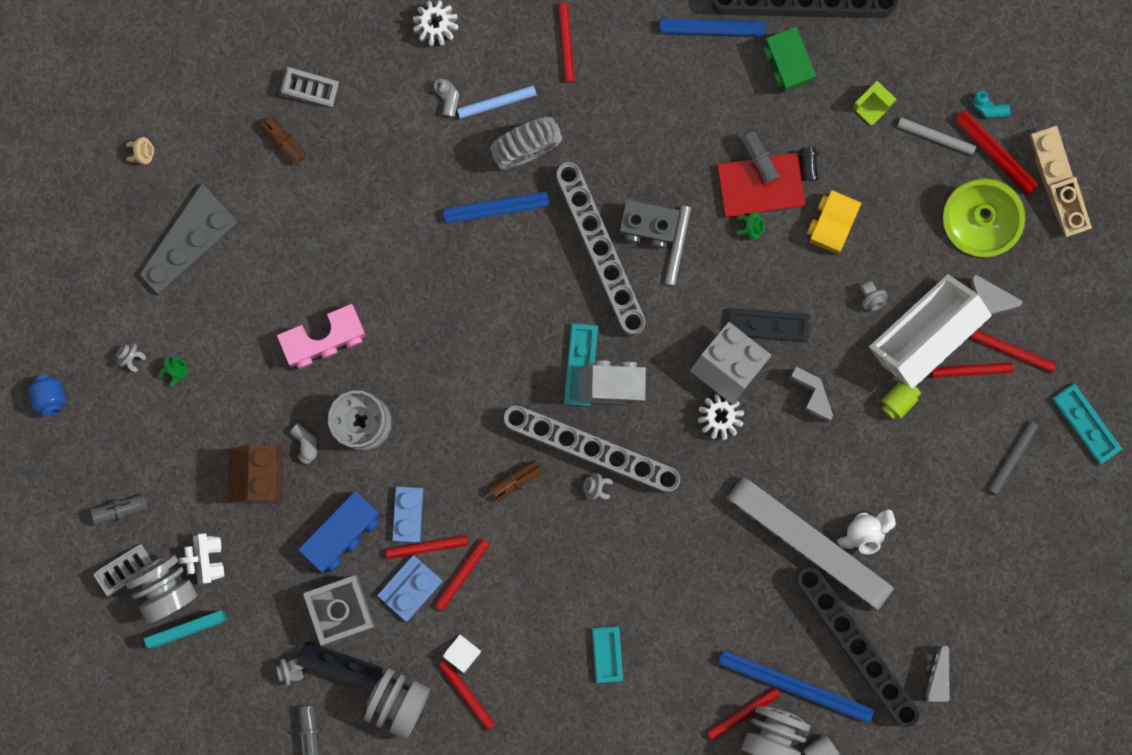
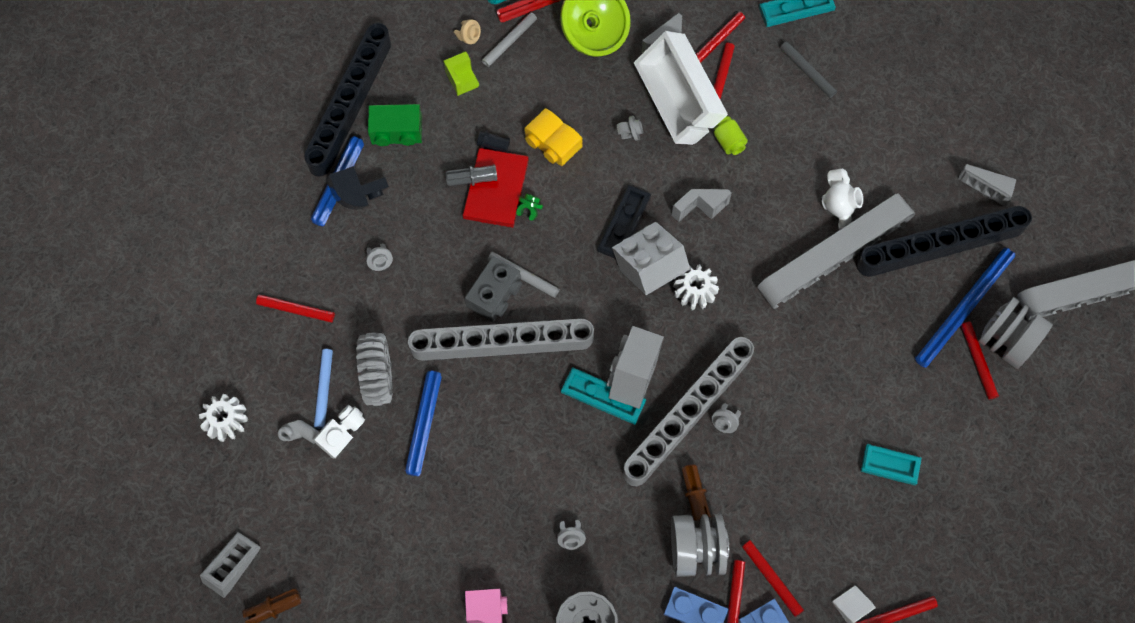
camera: 75 degrees left, 15 degrees down
(434, 381) = (571, 537): none -> light grey plate
(453, 131) = (334, 435): none -> white plate
(463, 496) = (699, 545): none -> light grey wheel
(642, 101) = (379, 258): none -> light grey plate
(699, 46) = (350, 193): none -> black brick
(927, 93) = (469, 31): none -> tan plate

